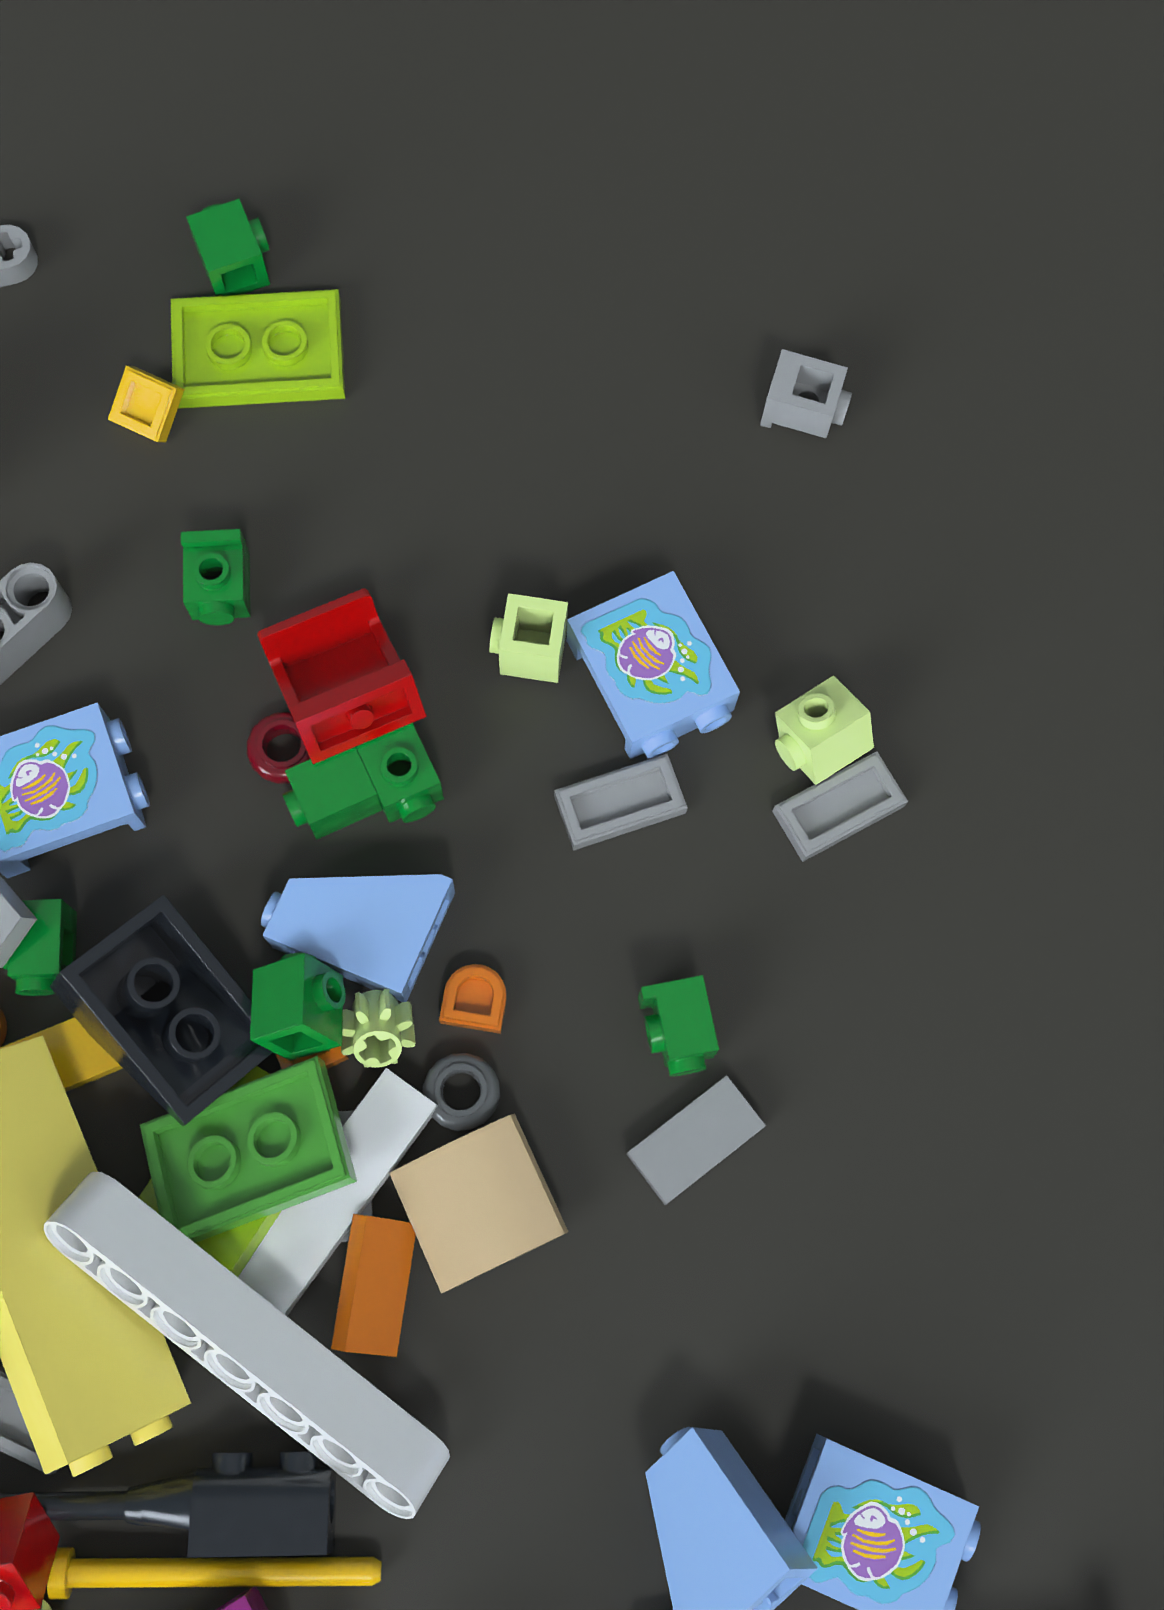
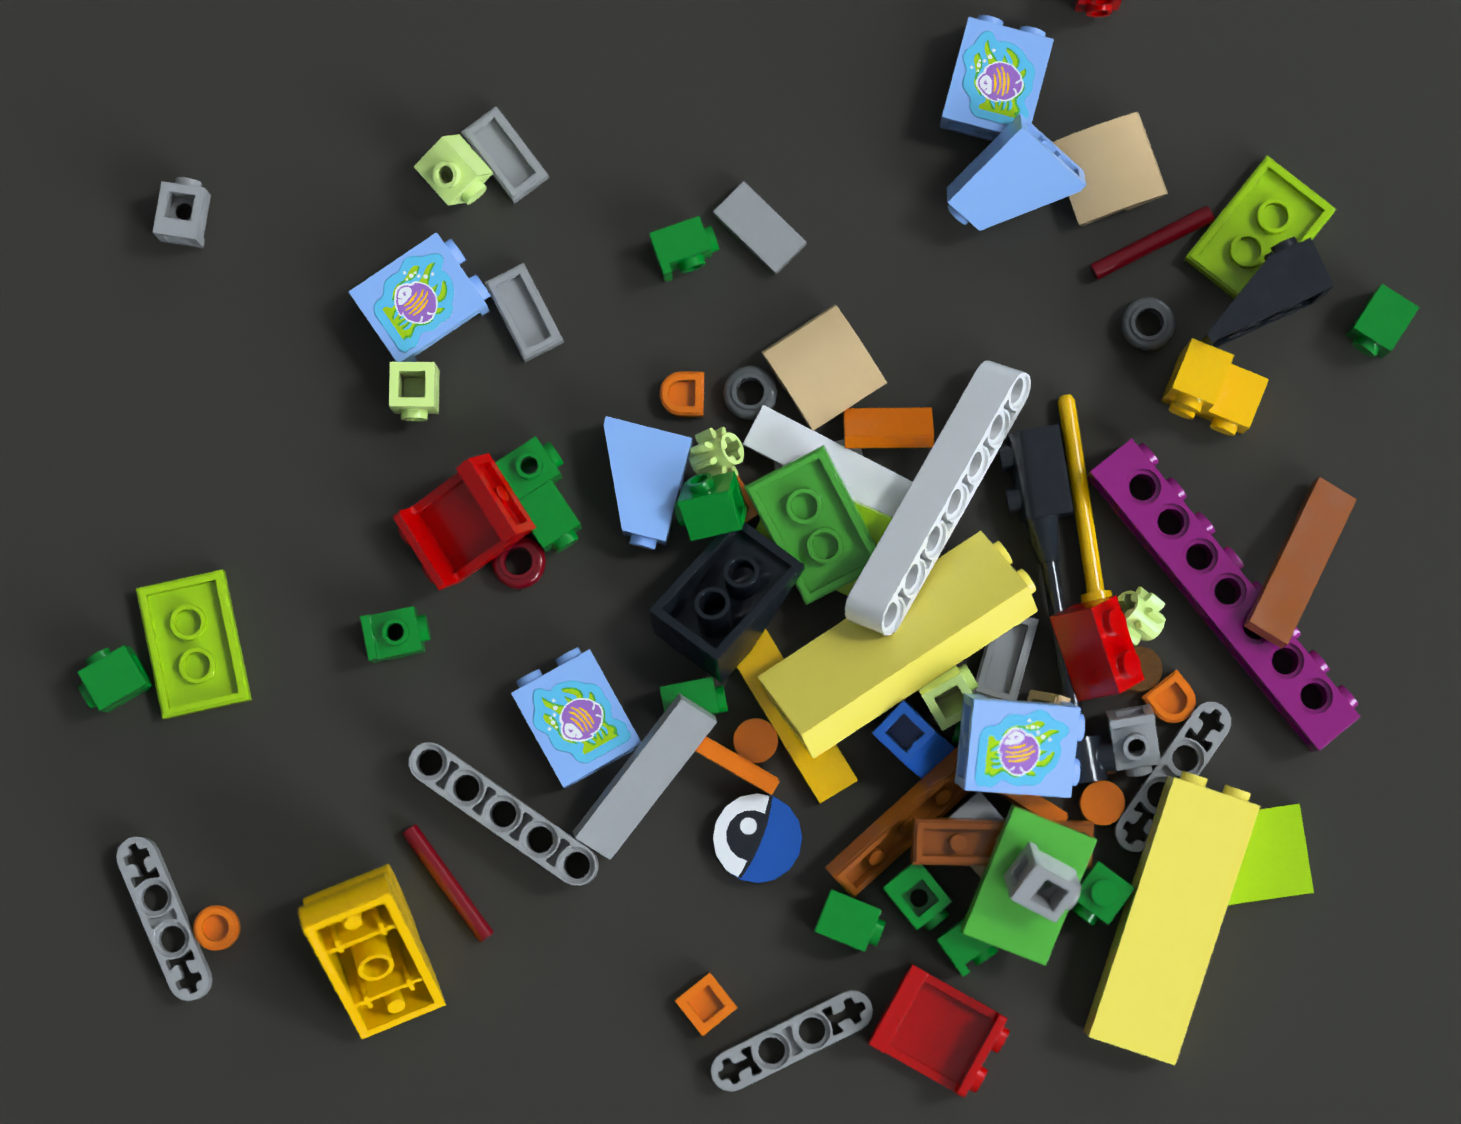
camera: 90 degrees left, 10 degrees up
(146, 404) = (257, 717): yellow tile -> none

